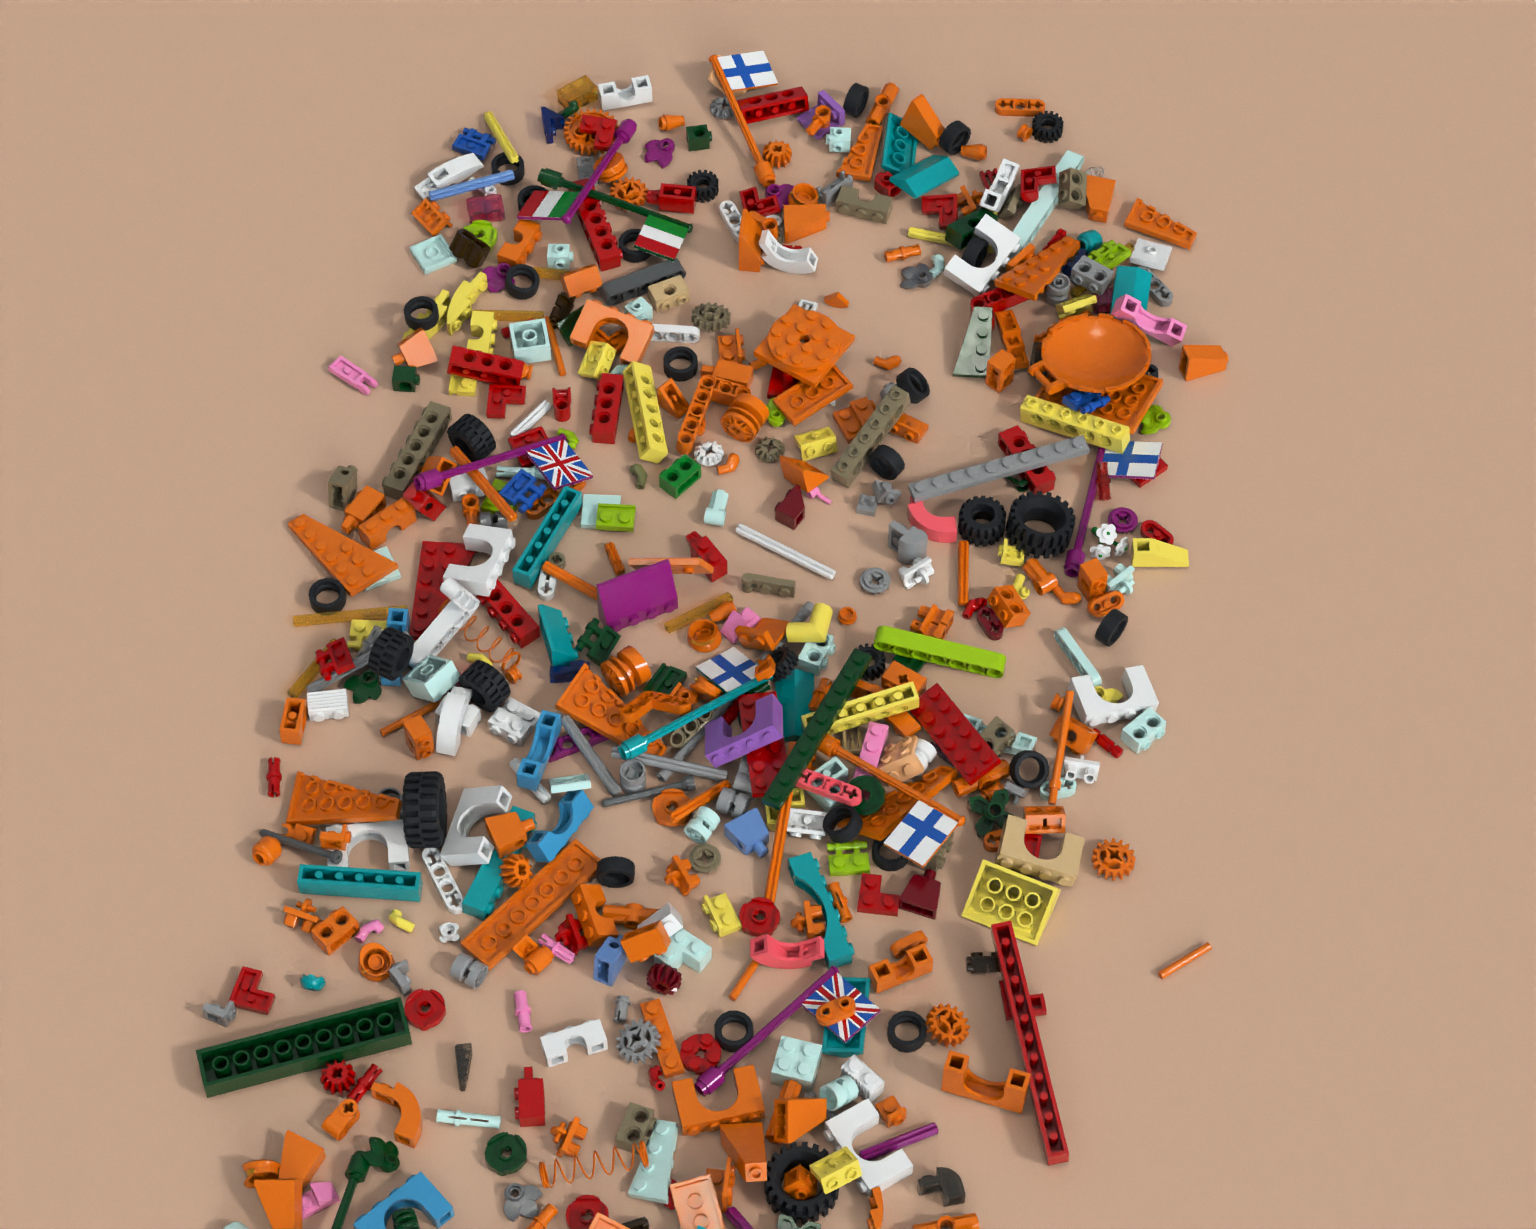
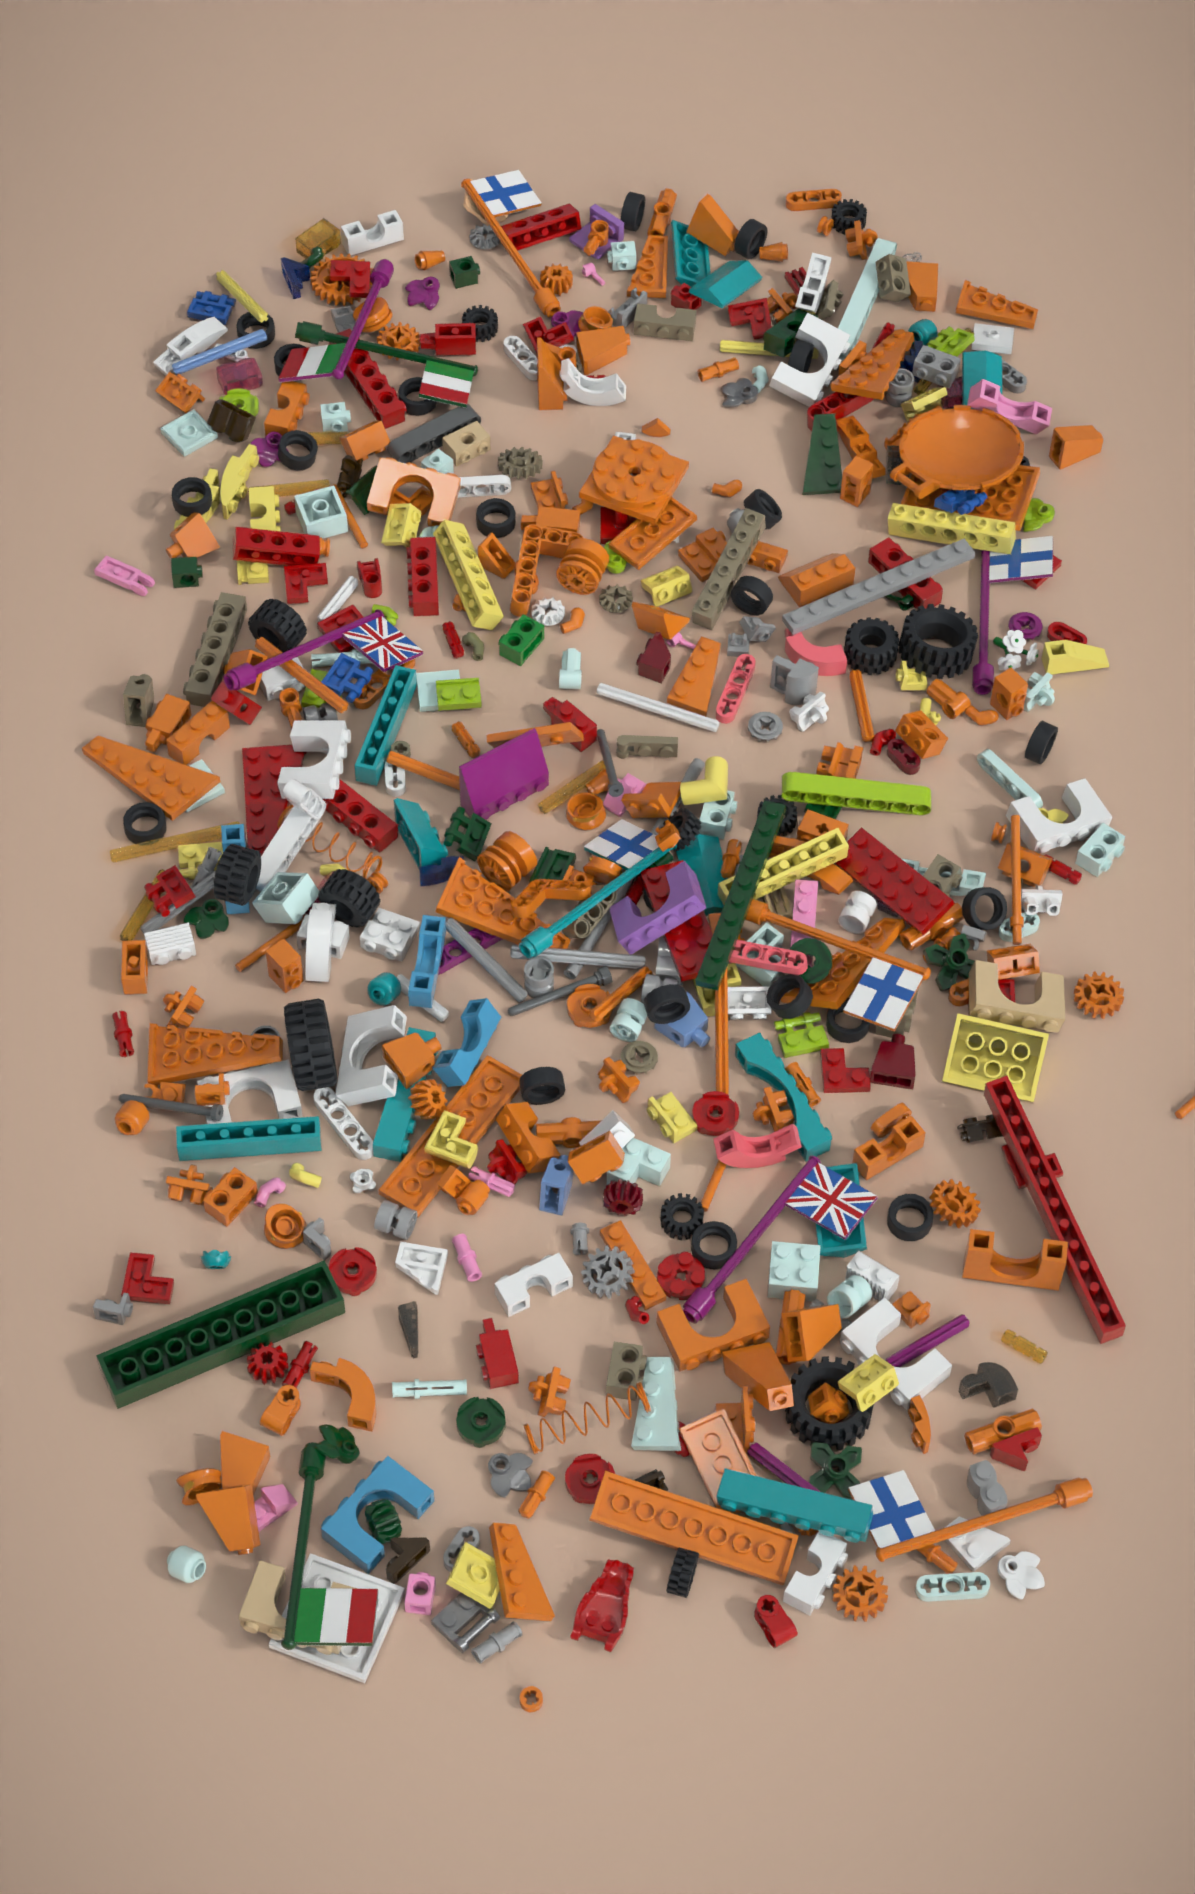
camera: 10 degrees left, 0 degrees up
(334, 756) = (190, 1001): none -> orange hips
(484, 1012) = (422, 1264): none -> white wing
(499, 768) = (384, 989): none -> teal head
(523, 909) = (446, 1144): none -> light yellow brick
(569, 783) = (469, 993): light aqua tile -> none
(621, 468) = (453, 639): none -> red axle
(711, 991) = (681, 1204): none -> black tyre
(725, 819) = (669, 1013): none -> black tyre
(730, 619) = (615, 787): none -> dark grey bar
(808, 148) = (589, 269): none -> bright pink hand
(822, 534) = (696, 680): none -> orange wing
(836, 1011) = (829, 1205): orange plate -> none
(847, 616) = (742, 768): orange plate -> none
(854, 542) = (735, 688): none -> coral beam
(900, 759) = (840, 916): light nougat bracket -> none
(949, 454) = (819, 578): none -> orange slope
(981, 1157) = (1024, 1346): none -> clear yellow axle
(1035, 177) = (849, 271): red brick -> none
(1054, 149) = (862, 239): none -> orange hips
(1103, 481) = (996, 586): clear red pin -> none
(1104, 603) = (1025, 719): orange plate -> none

